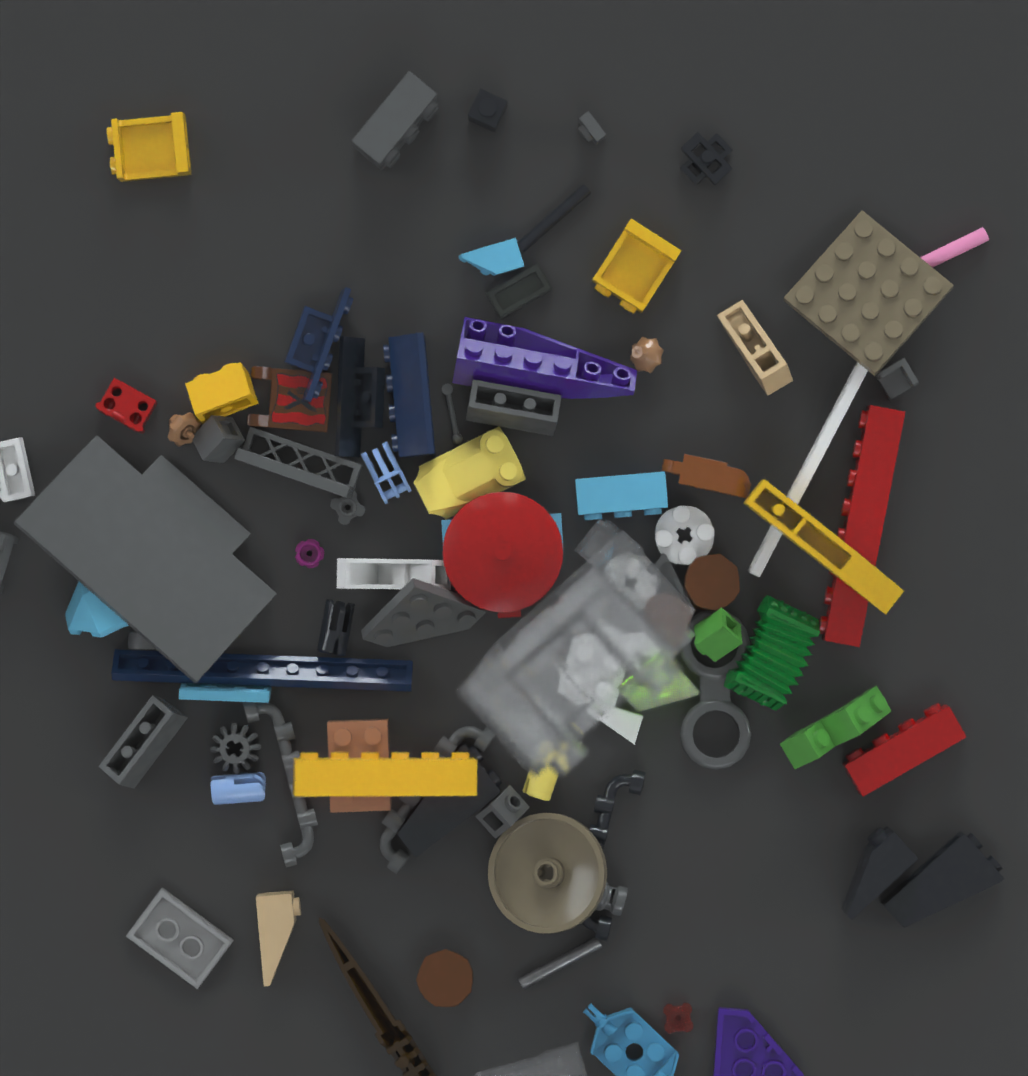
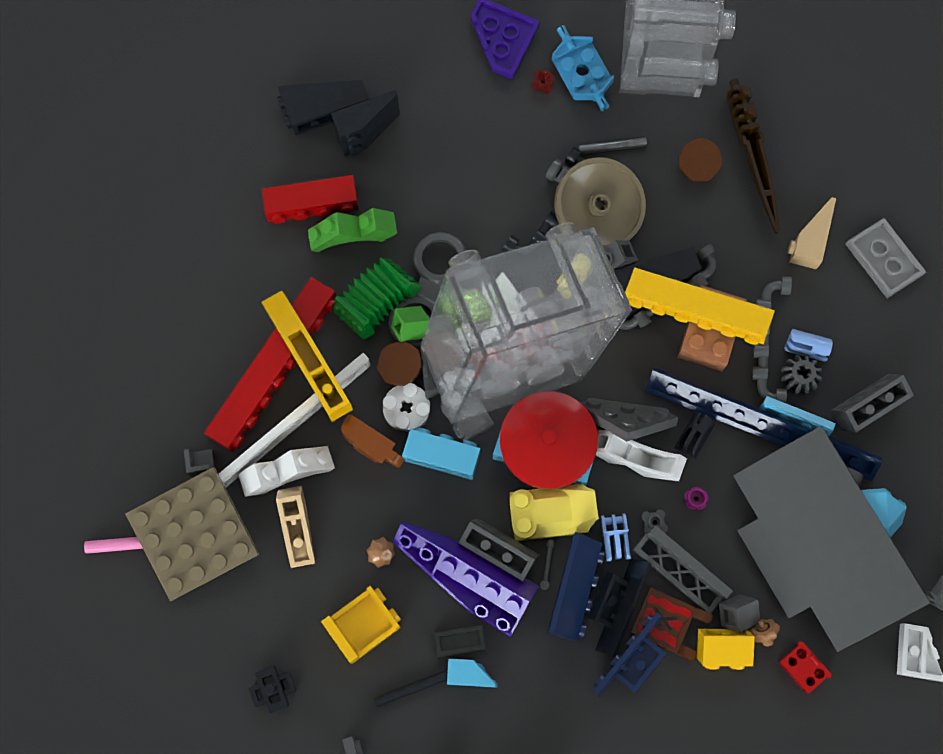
camera: 160 degrees left, 15 degrees down
(792, 406) = (293, 465): none -> white arch

